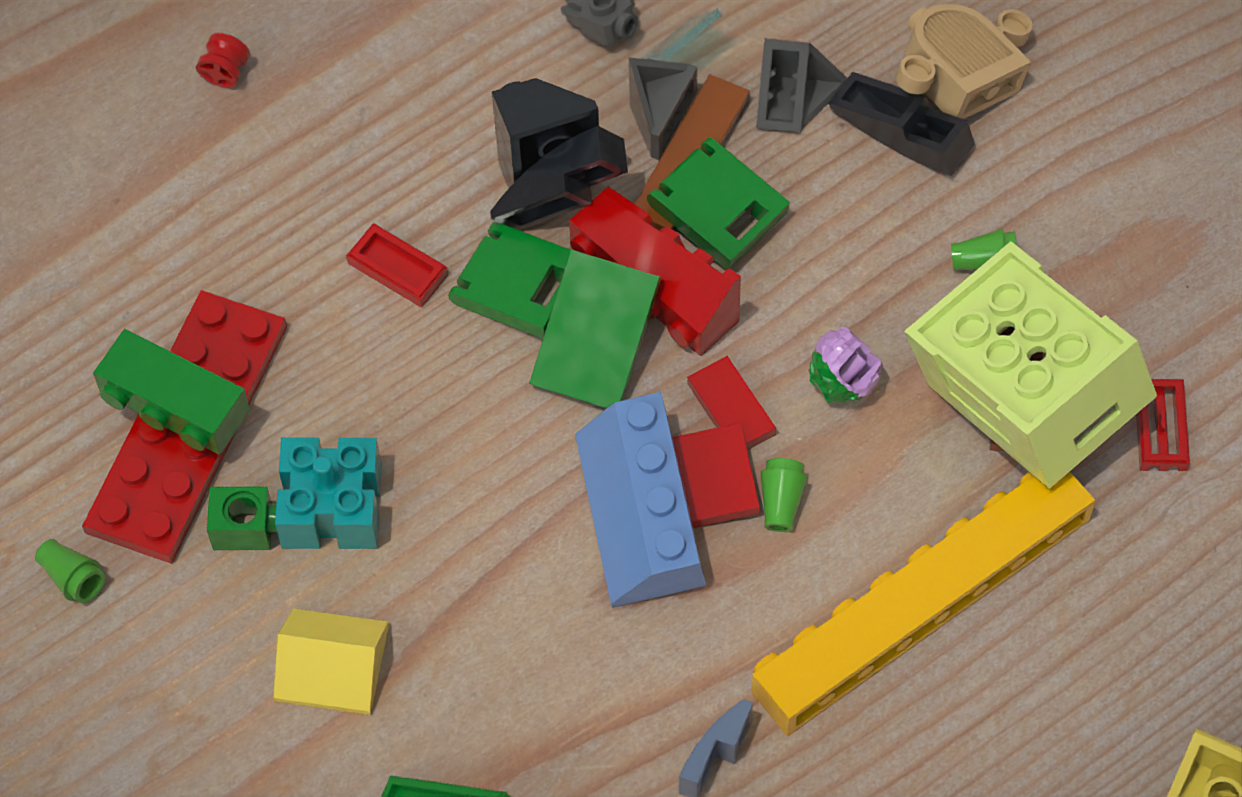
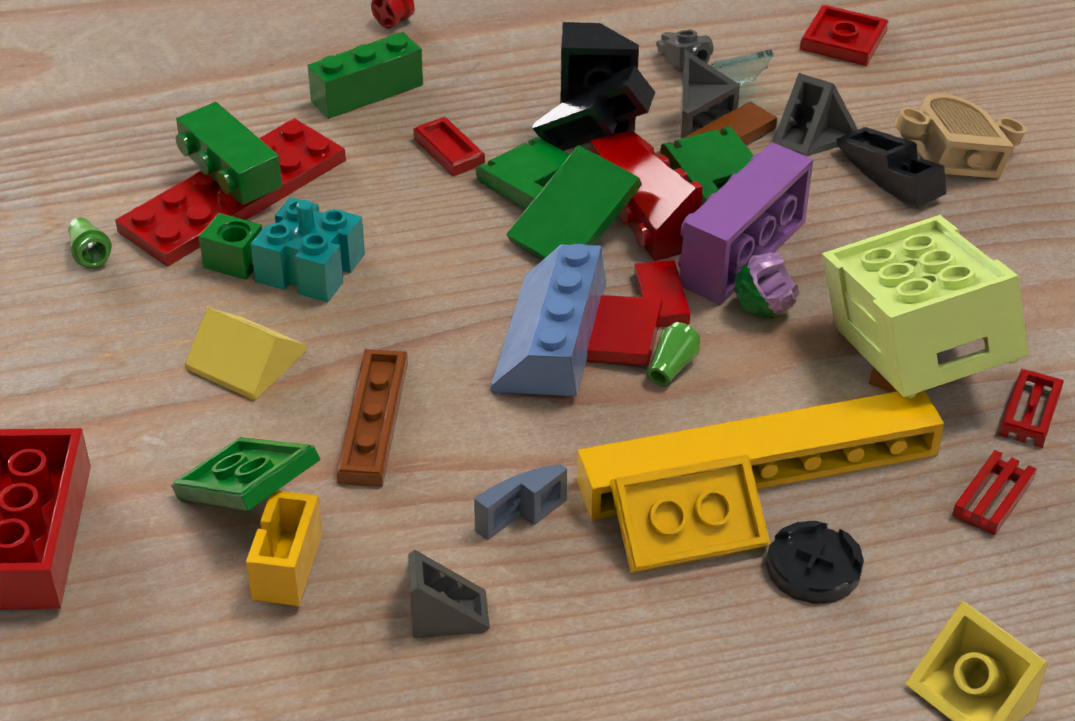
camera: 20 degrees right, 20 degrees down
(252, 193) = (365, 74): none -> green brick
(509, 692) = (372, 418): none -> dark orange tile
(788, 286) = (744, 219): none -> medium lavender brick
(889, 704) = (689, 513): none -> yellow tile
(1023, 706) = (814, 562): none -> black tile
(1168, 517) = (1007, 470): none -> red tile

